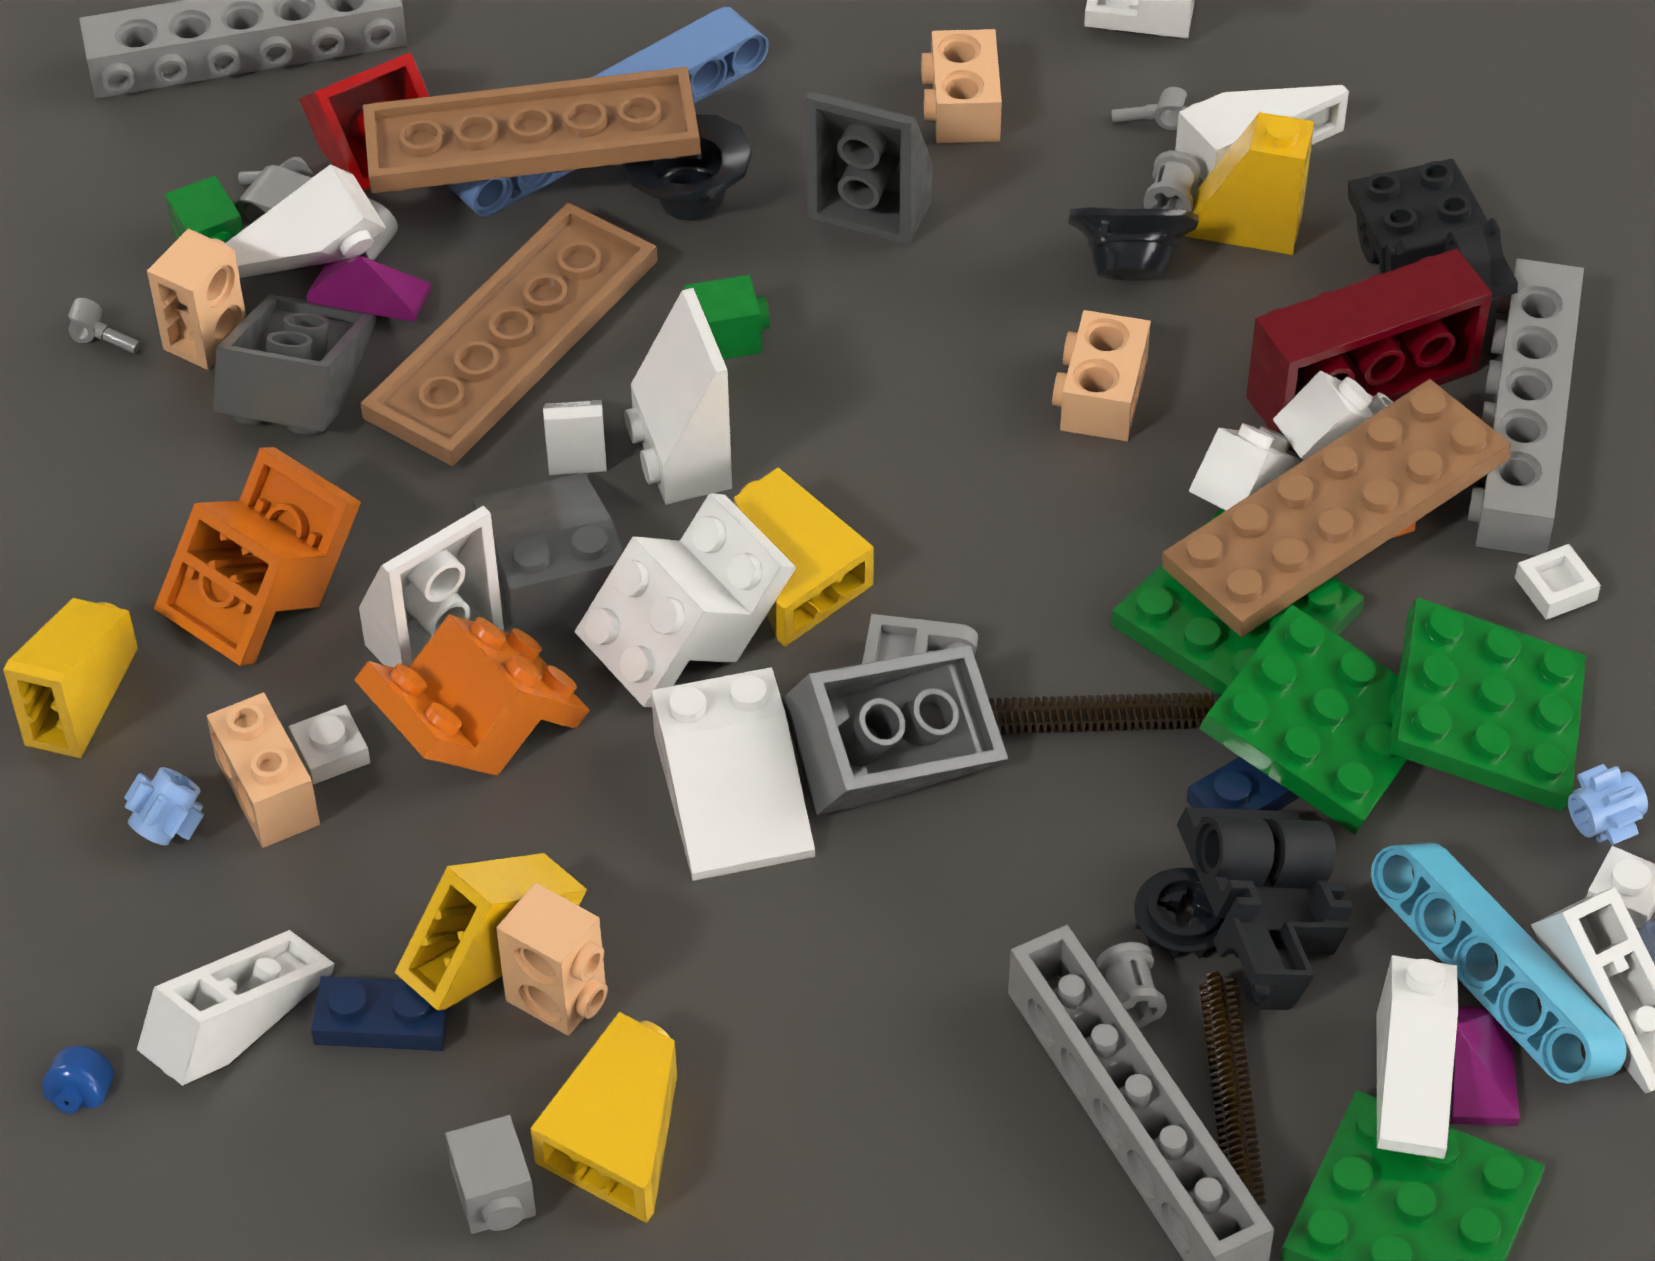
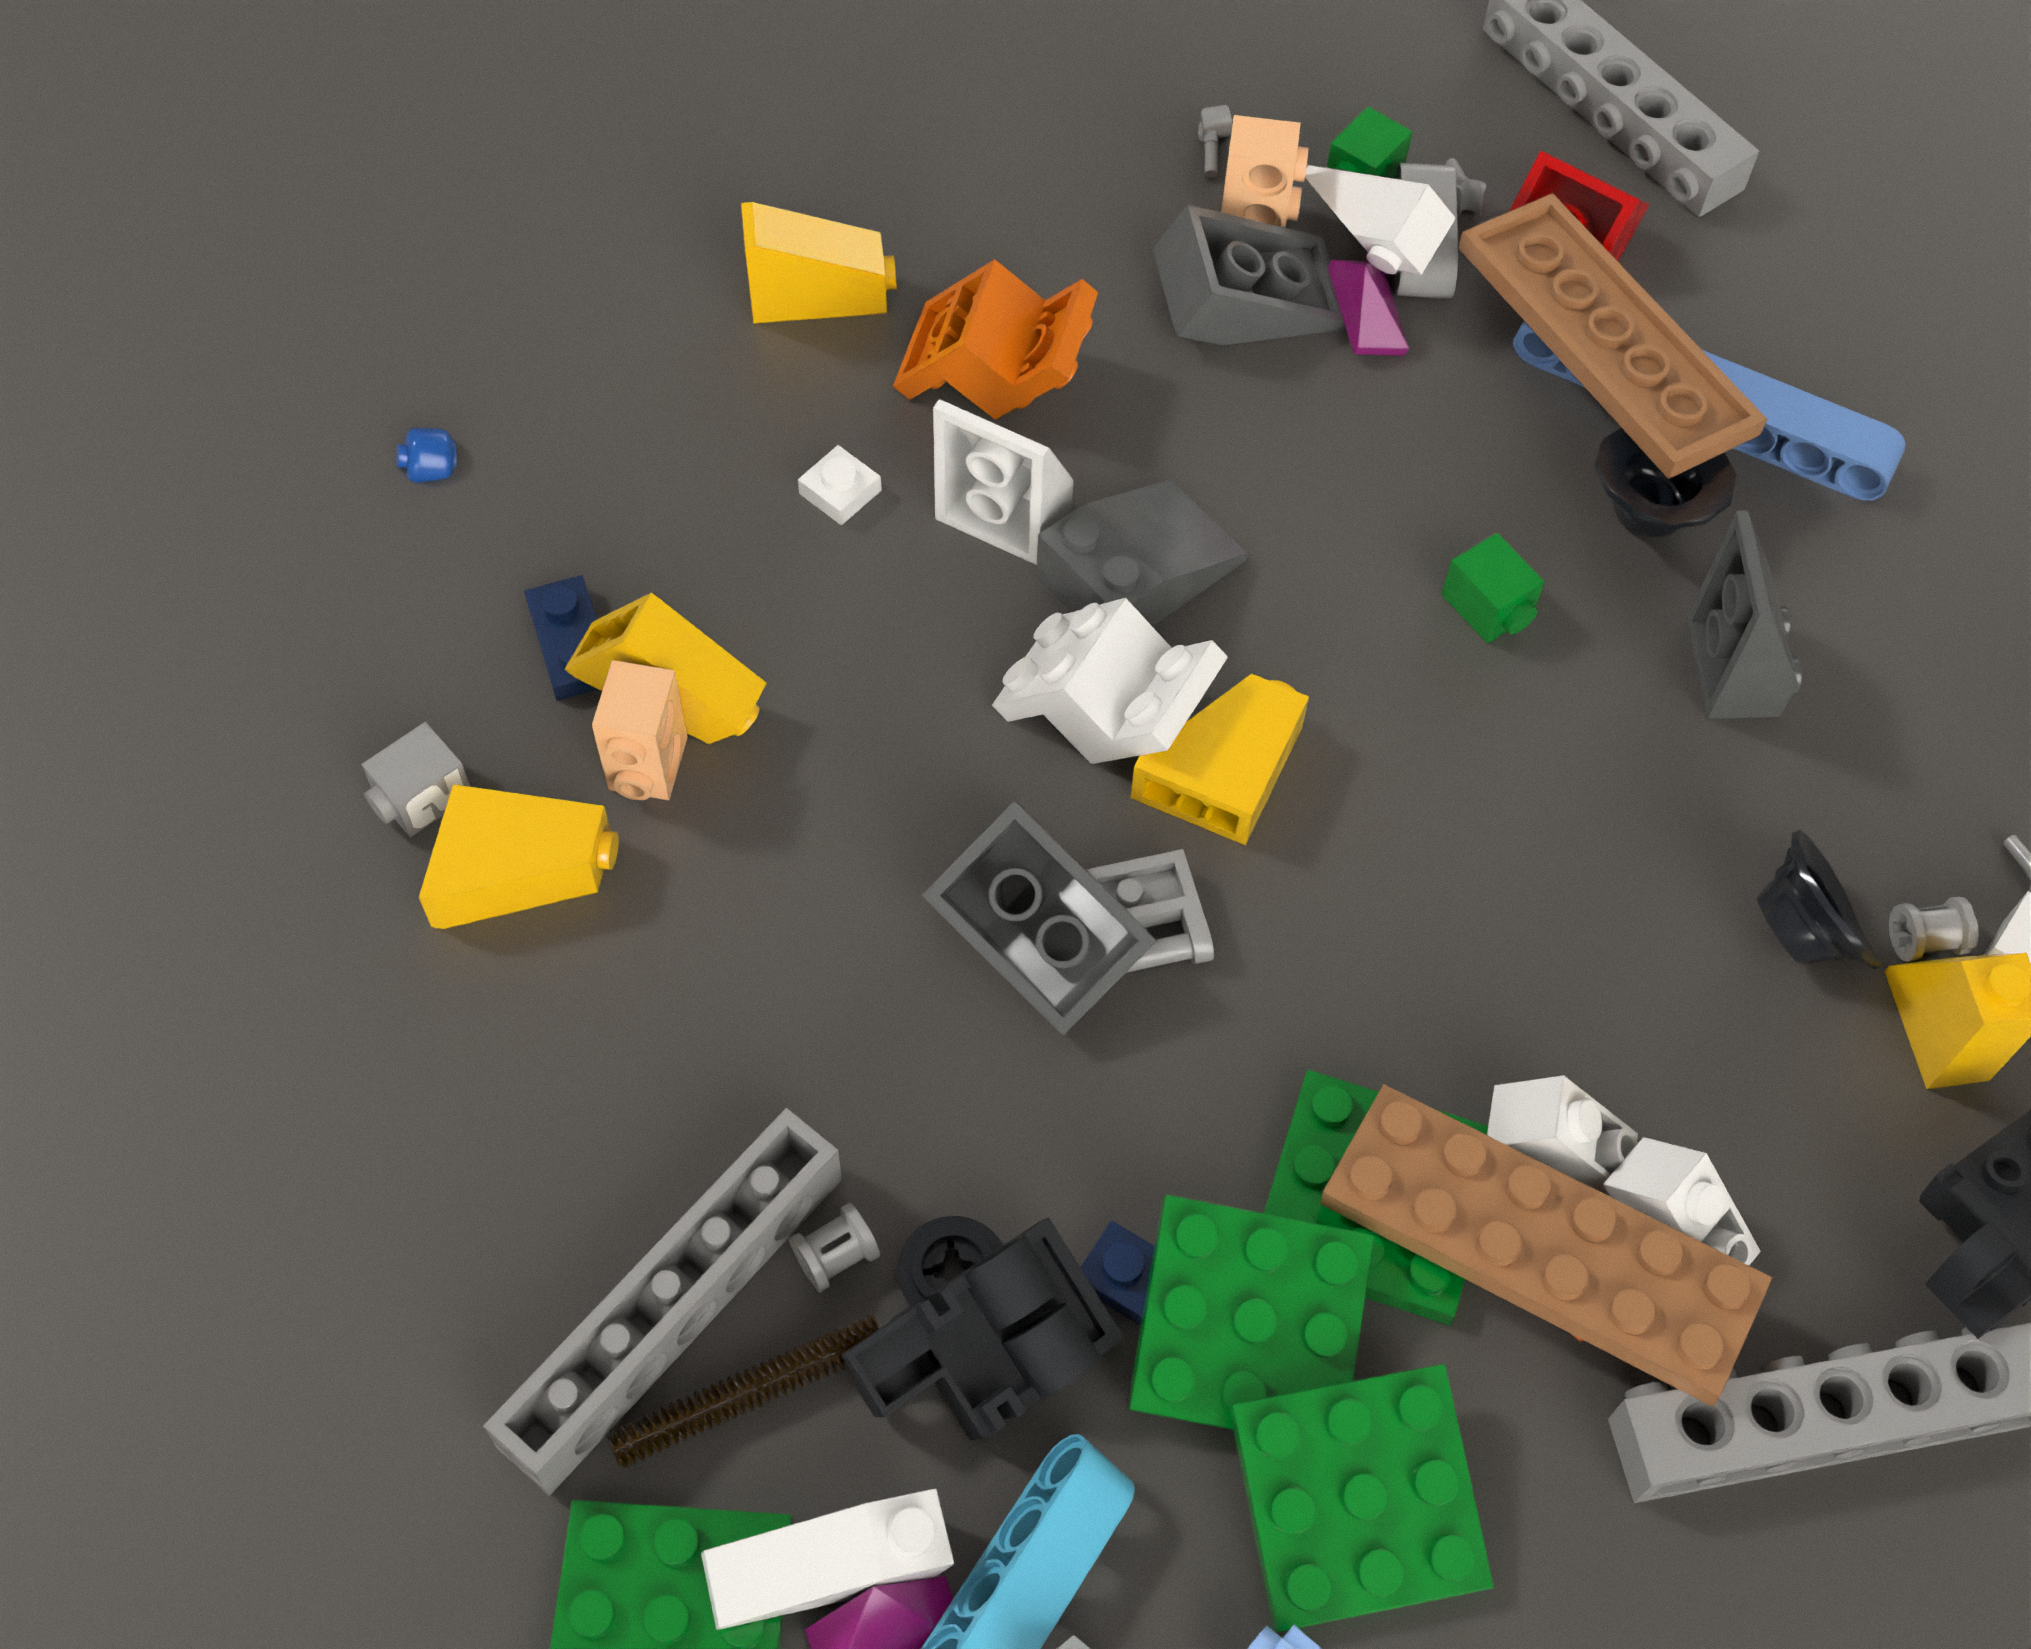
camera: 65 degrees right, 10 degrees up
(164, 806) = (704, 390): light blue gear -> none
(227, 1005) = (525, 521): white slope -> none
(263, 770) = (773, 443): light nougat brick -> none
(473, 694) = (914, 558): orange bracket -> none
(509, 333) = (1382, 429): medium nougat plate -> none
(575, 437) = (1285, 521): white slope -> none
(683, 407) = (1334, 595): white slope -> none
(731, 773) = (933, 800): white slope -> none
(964, 86) = (1945, 681): light nougat brick -> none
(1097, 711) = (1168, 1096): dark brown axle -> none
(1103, 375) = (1623, 965): light nougat brick -> none
(1378, 332) = (1813, 1202): dark red brick -> none
(1557, 581) = (1586, 1523): white plate -> none

